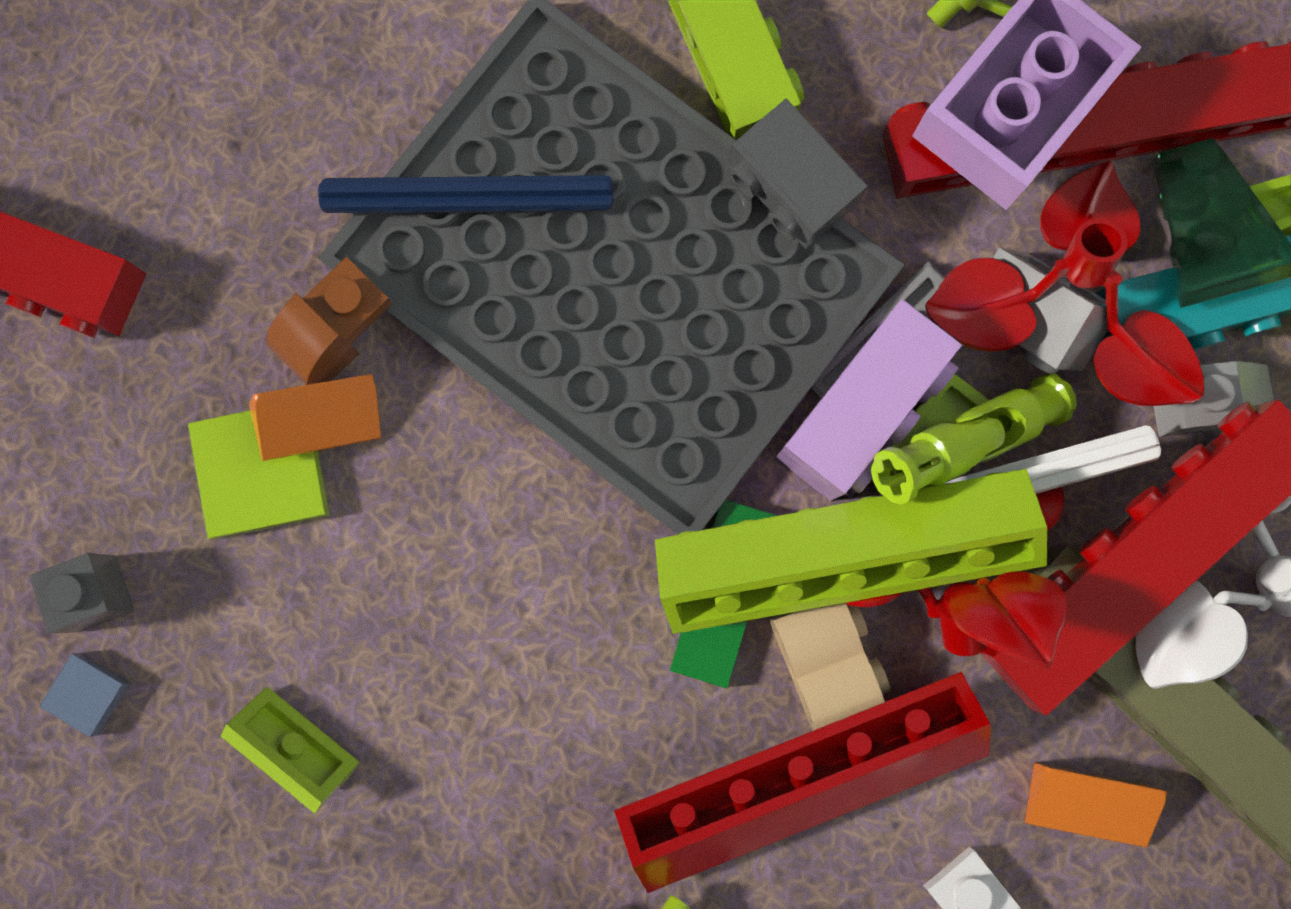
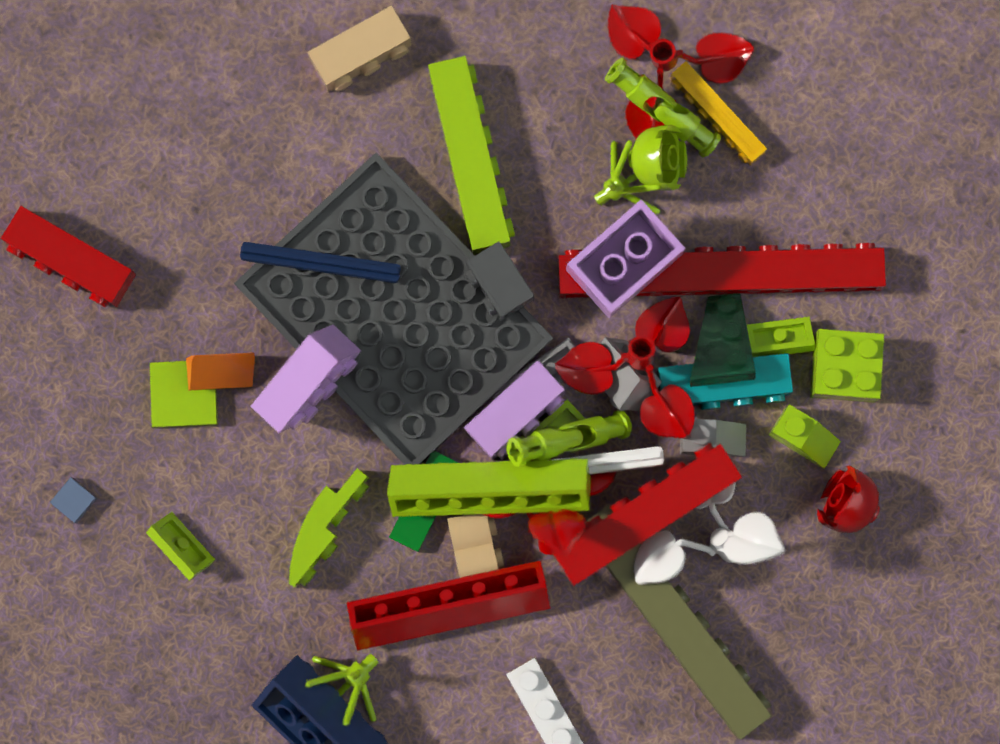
camera: 10 degrees right, 0 degrees up
(81, 593) = (82, 445): dark grey brick -> none
(317, 331) = (230, 323): dark orange brick -> none
(471, 404) = (306, 379): none -> lavender brick
(534, 692) = (314, 538): none -> lime slope
(1093, 805) = (603, 645): orange slope -> none

